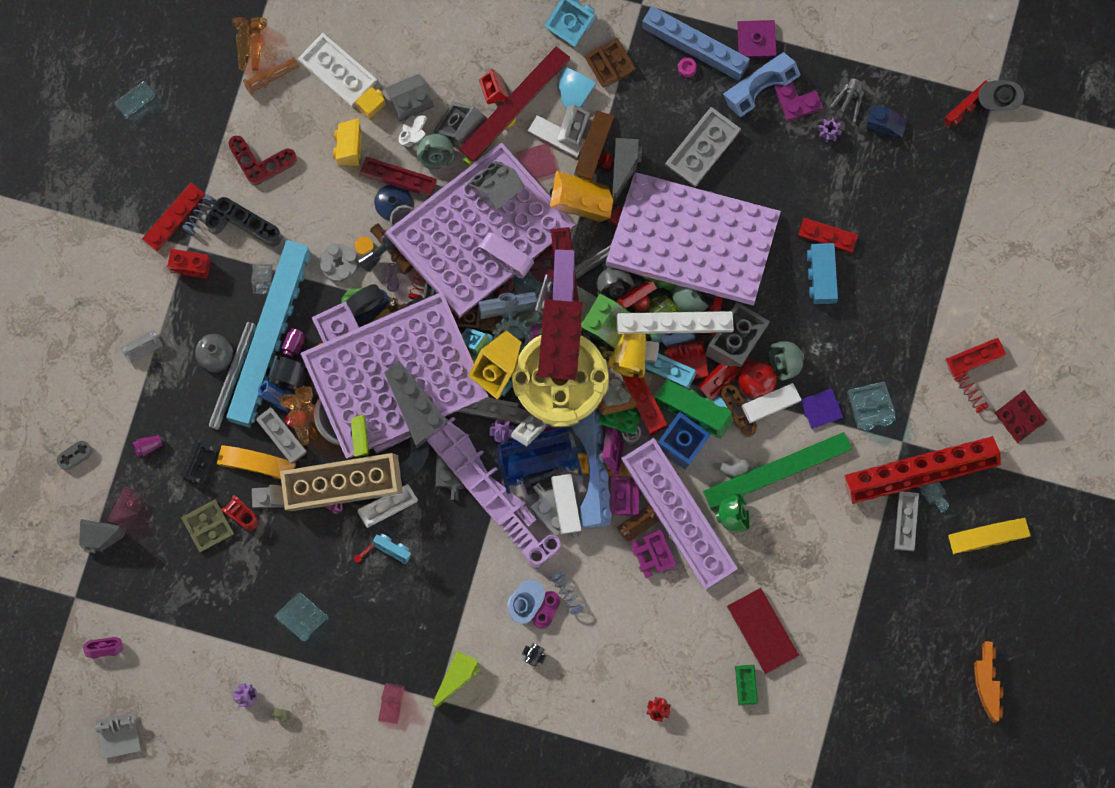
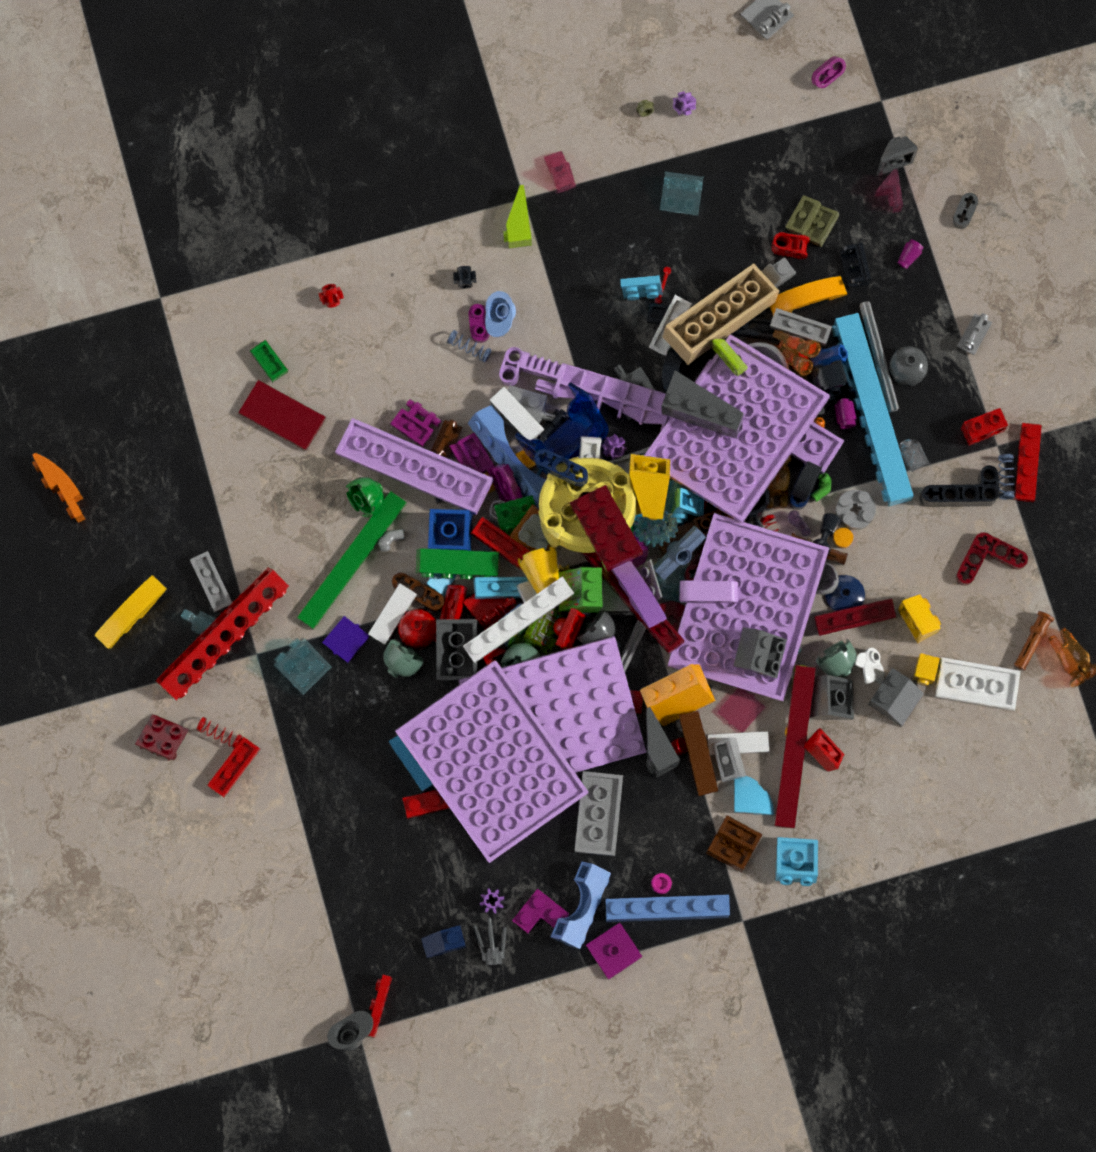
camera: 145 degrees right, 0 degrees up
(566, 432) = (576, 468): none -> dark blue beam
(765, 228) = (492, 761): none -> lavender plate

